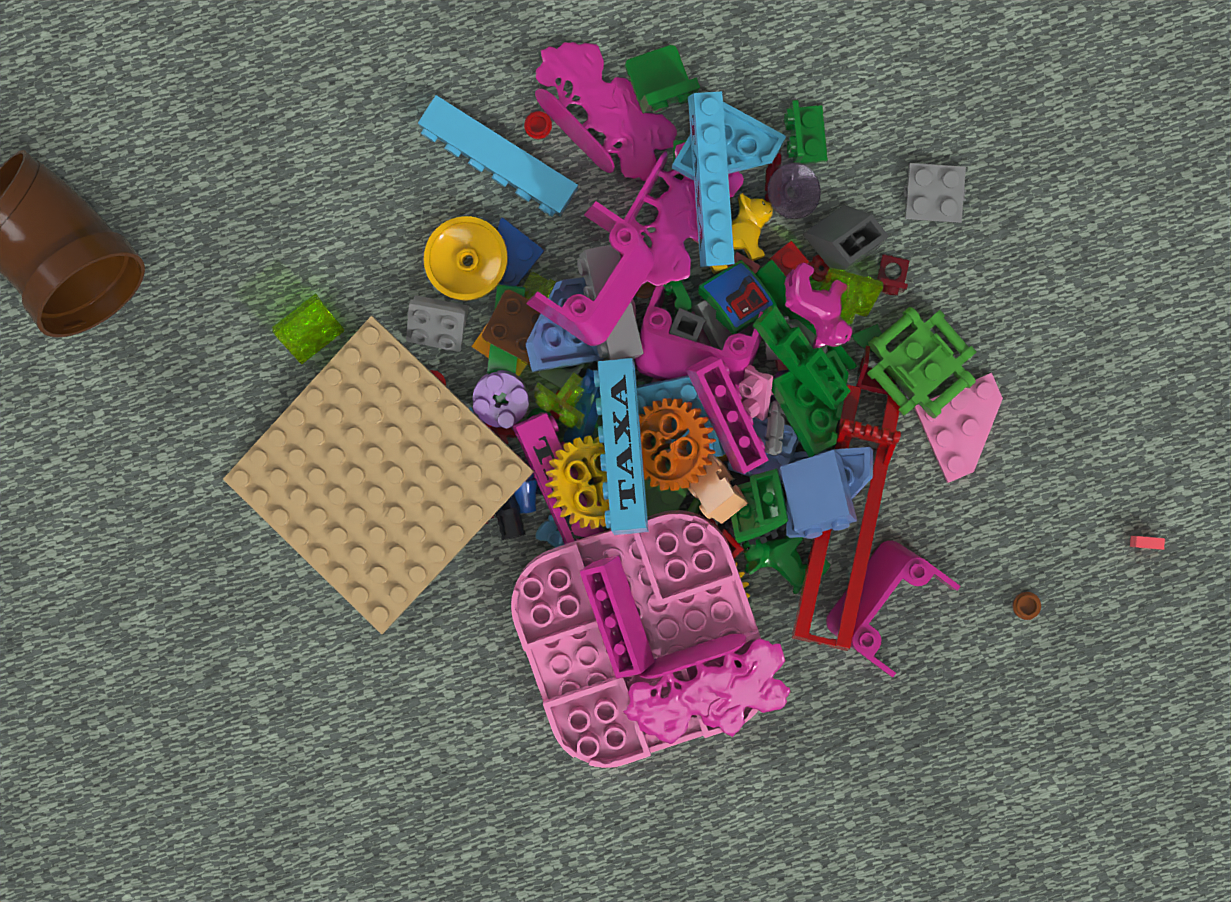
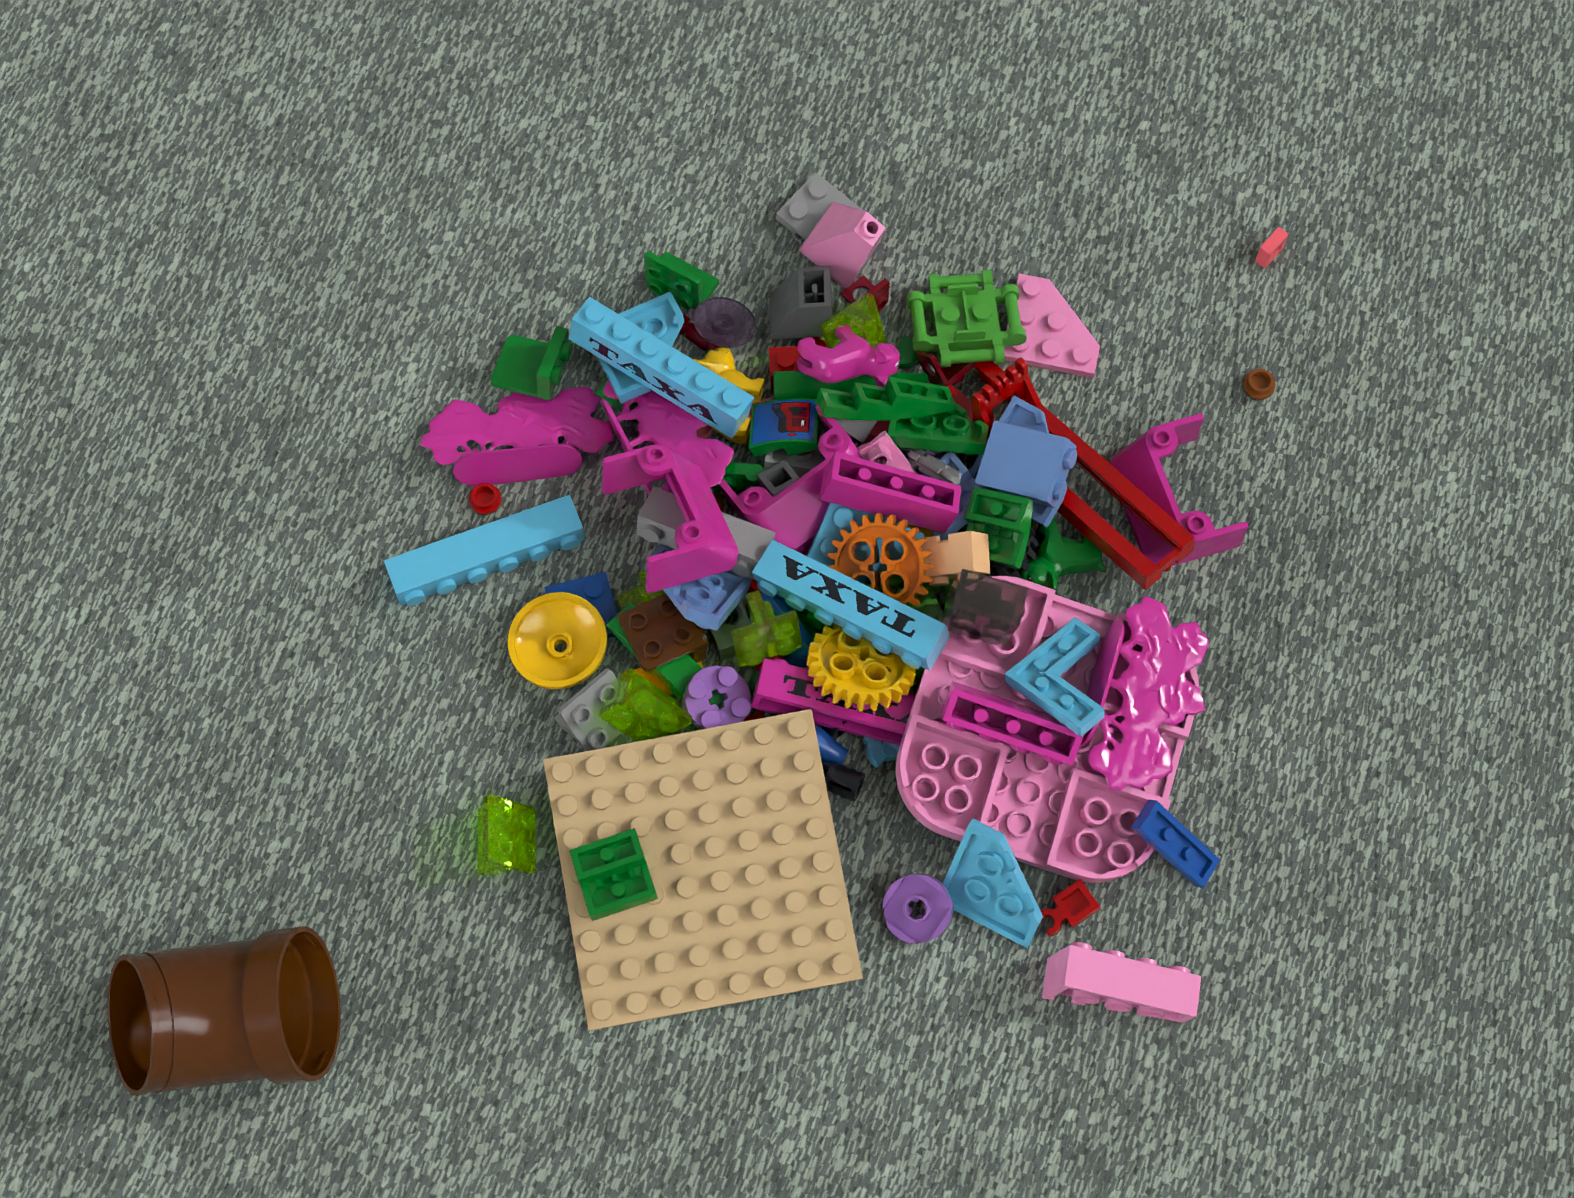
camera: 55 degrees left, 20 degrees down
(326, 422) = (613, 874): none -> green slope
(458, 356) = (644, 709): none -> clear neon green bracket
(470, 636) = (898, 912): none -> medium lavender plate
(499, 807) = (1122, 983): none -> bright pink wedge
(502, 674) = (991, 886): none -> medium azure plate
(533, 737) = (1073, 905): none -> red plate
(621, 779) = (1175, 843): none -> blue plate
(667, 609) = (1040, 682): none -> medium azure plate
(679, 544) = (984, 607): none -> clear smoke brick
(917, 230) = (843, 241): none -> bright pink slope

